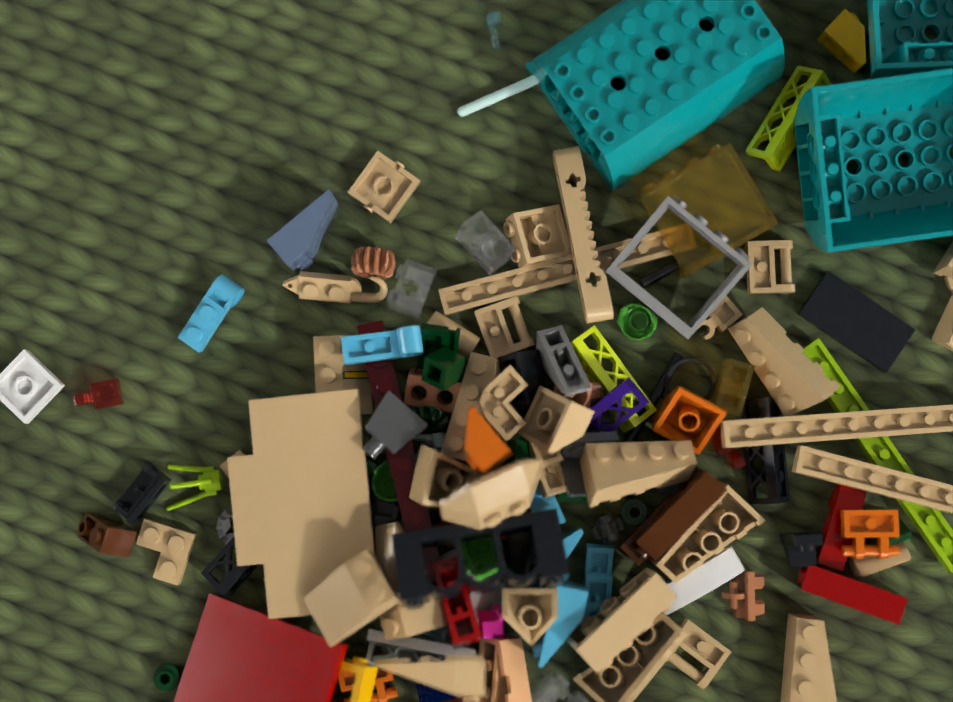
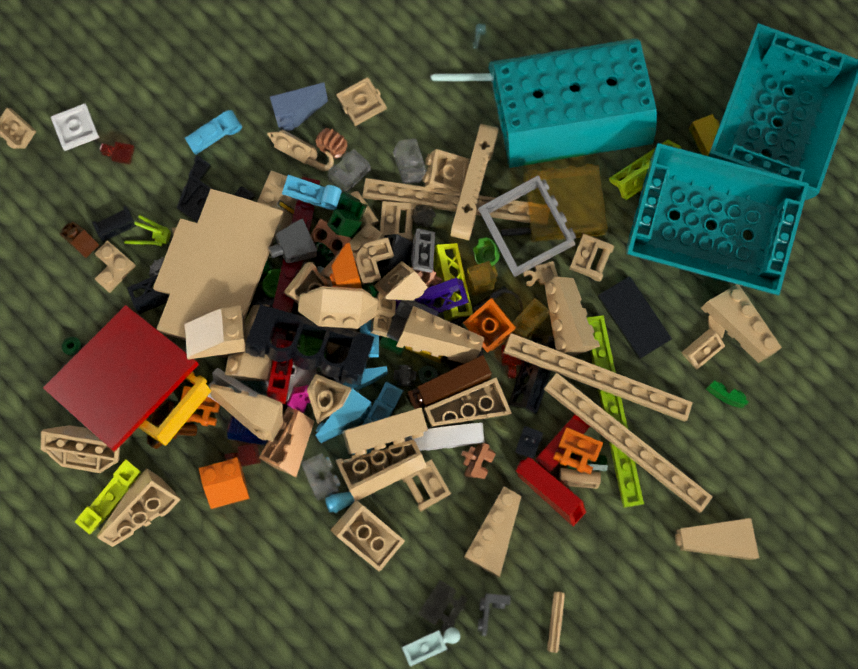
camera: 25 degrees right, 10 degrees down
(231, 407) = (196, 192): none -> black wing
(535, 307) = (423, 216): none -> clear smoke gear
(649, 359) = (481, 277): none -> clear yellow brick

